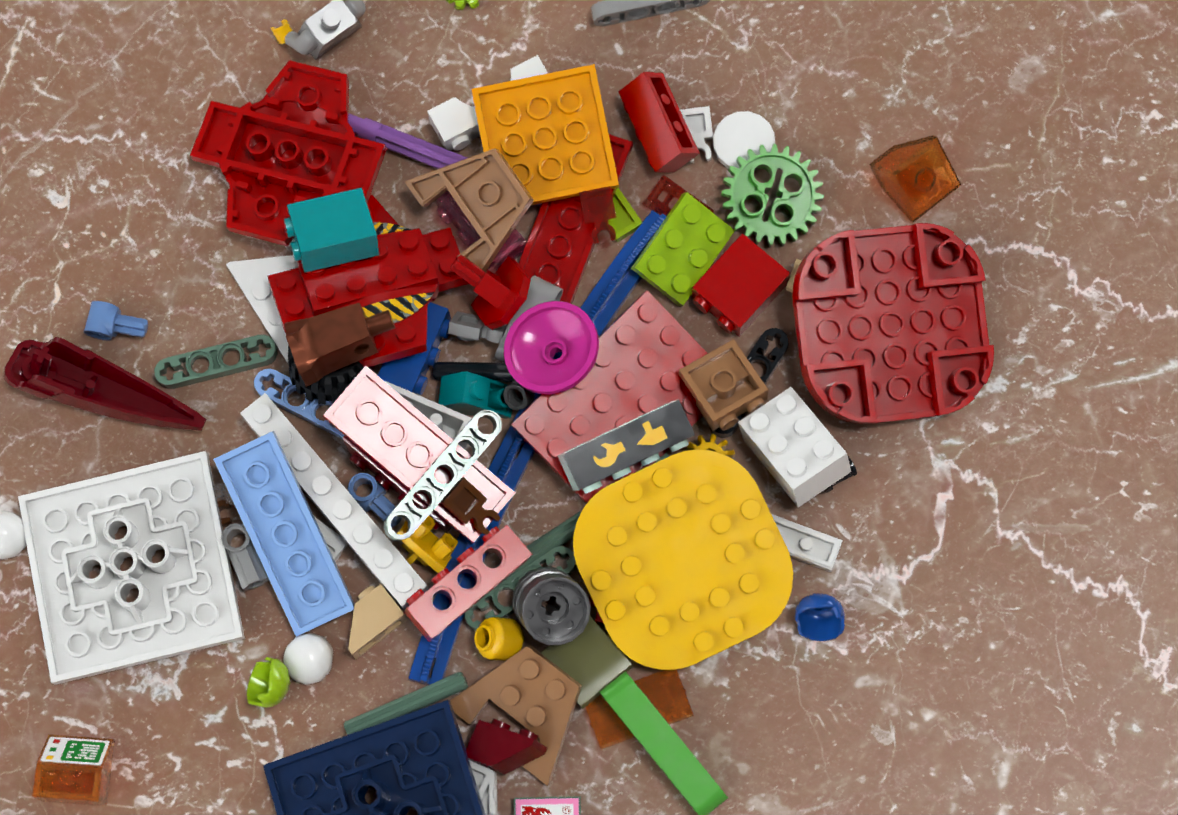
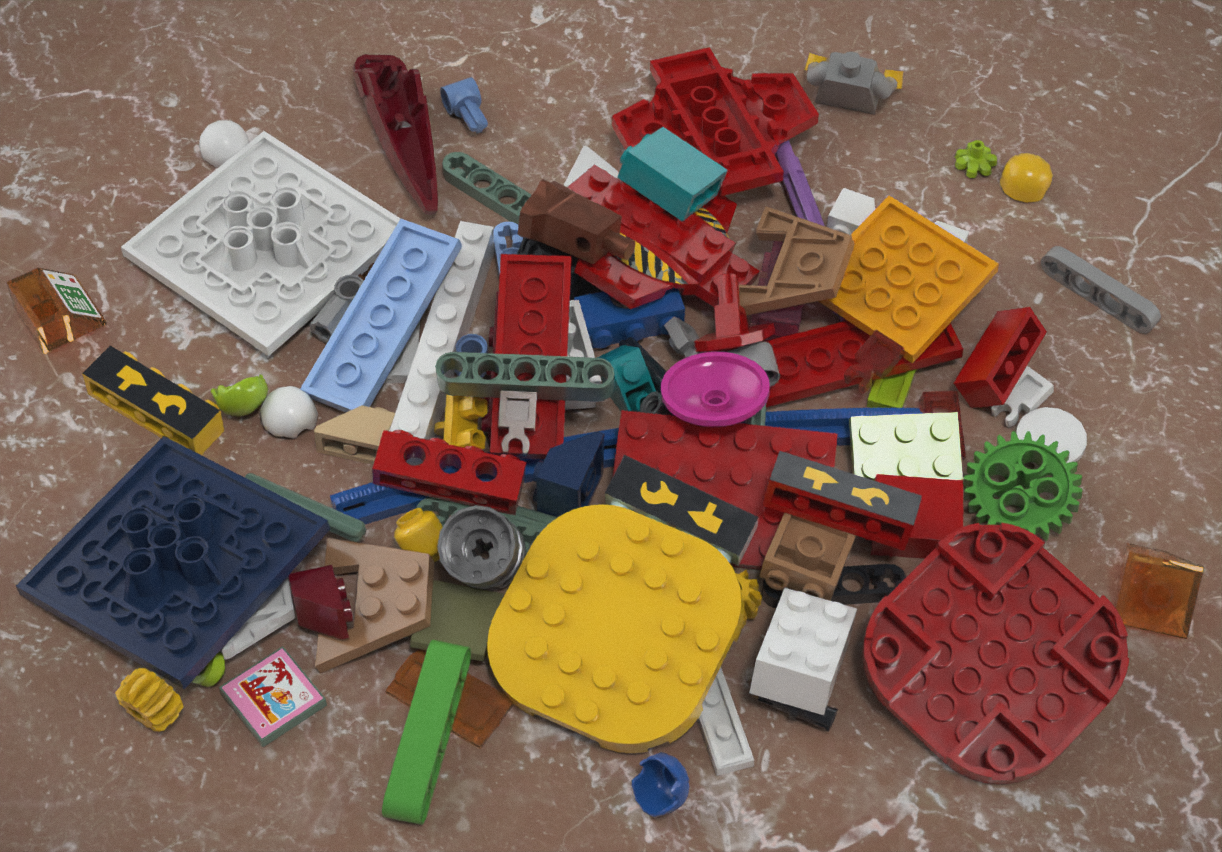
camera: 45 degrees right, 20 degrees down
(223, 751) = (153, 400): none -> brick
(536, 502) = (569, 475): none -> dark blue slope
(707, 332) = (842, 500): none -> brick

